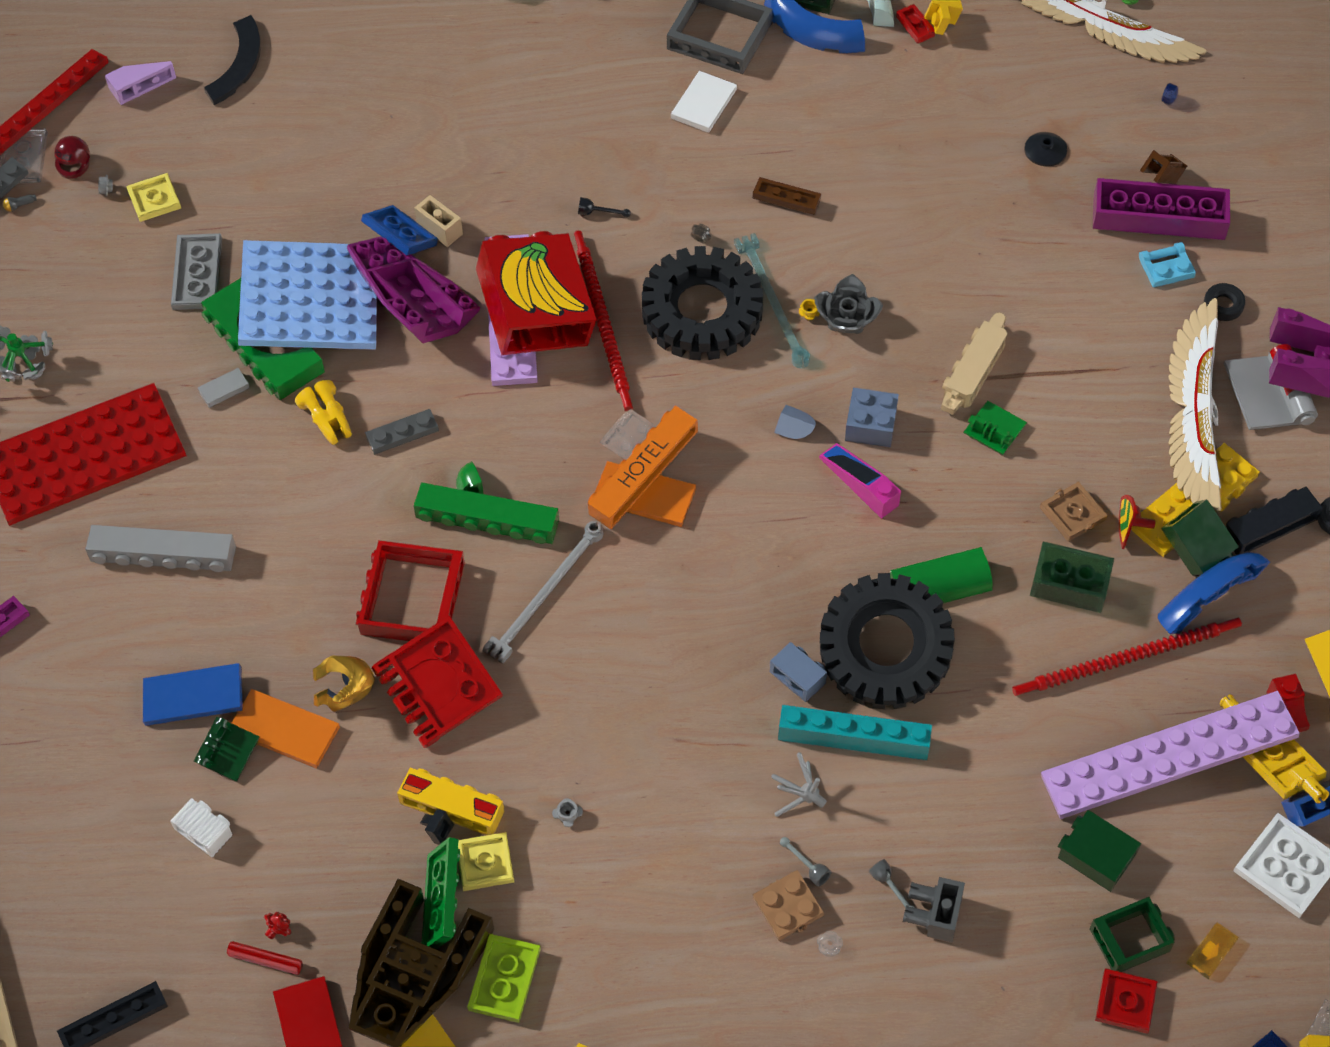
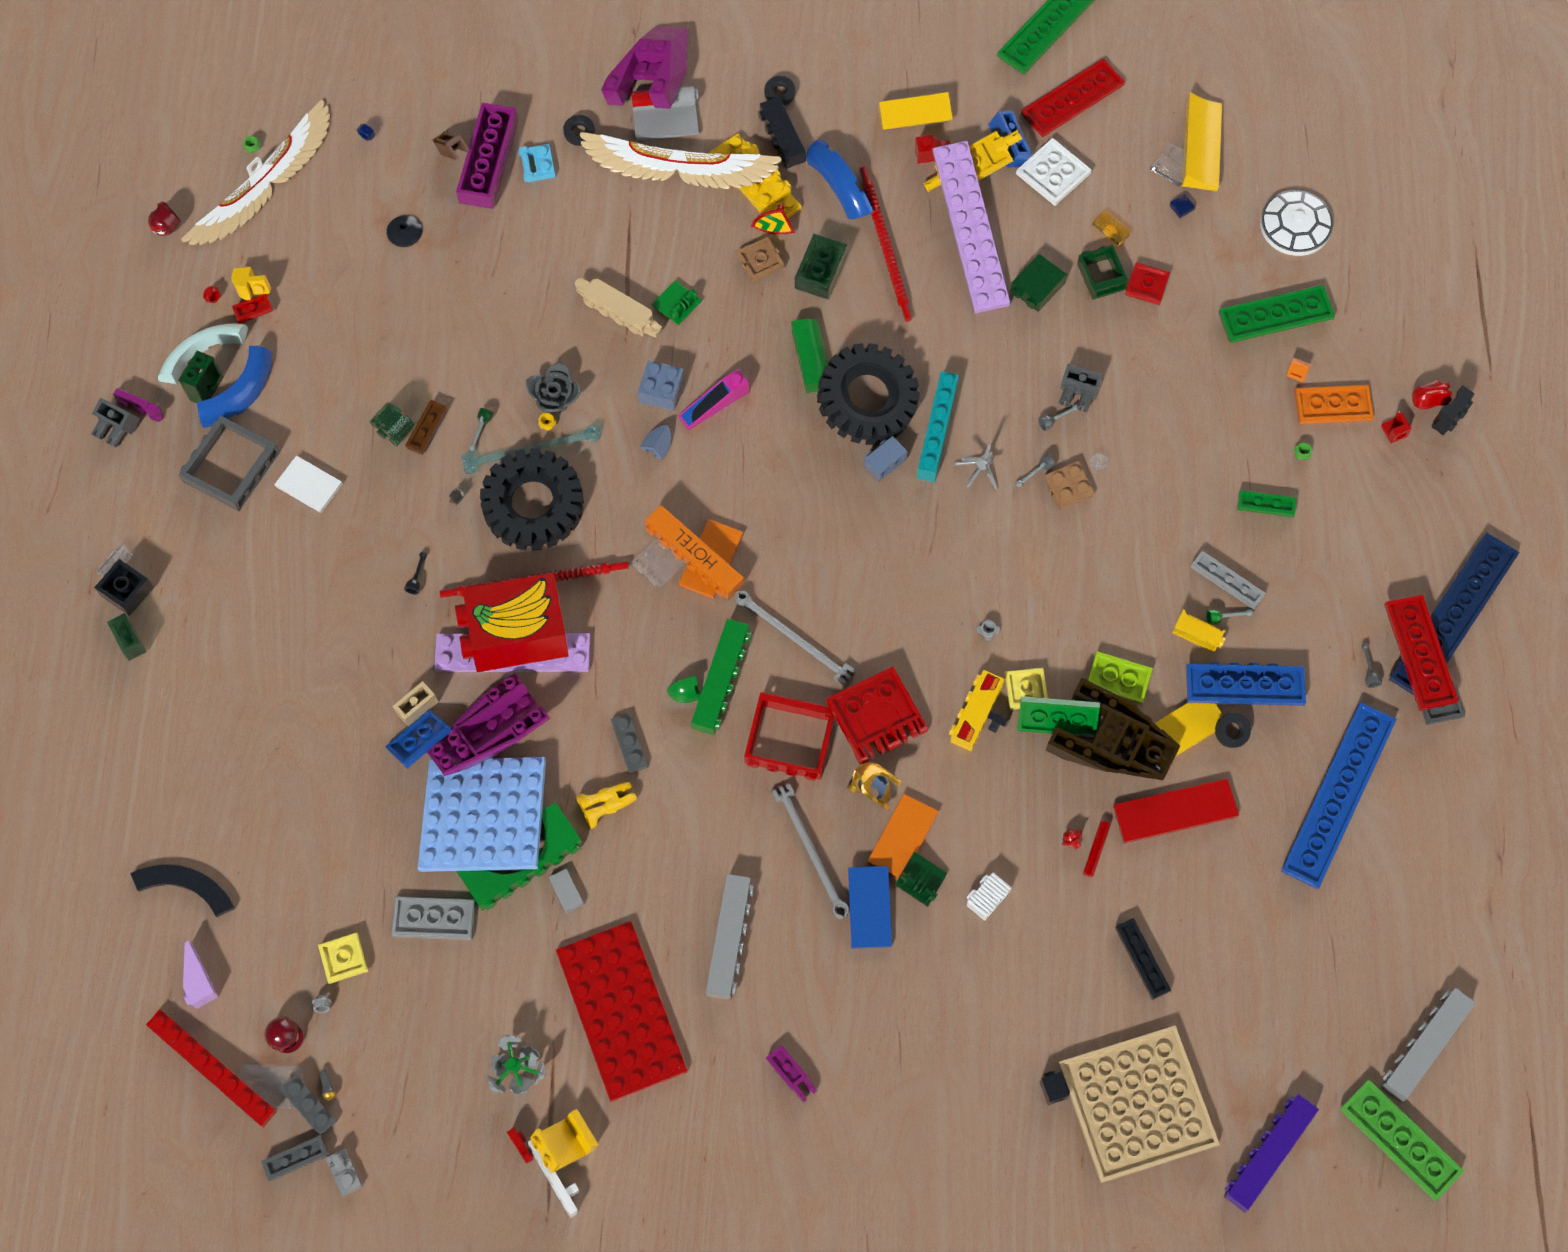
camera: 85 degrees left, 10 degrees up
(339, 594) = (785, 797): none -> light grey hinge
(781, 158) = (392, 424): none -> clear green brick
(807, 248) = (484, 416): none -> hinge
(1200, 537) = (797, 177): dark green brick -> none

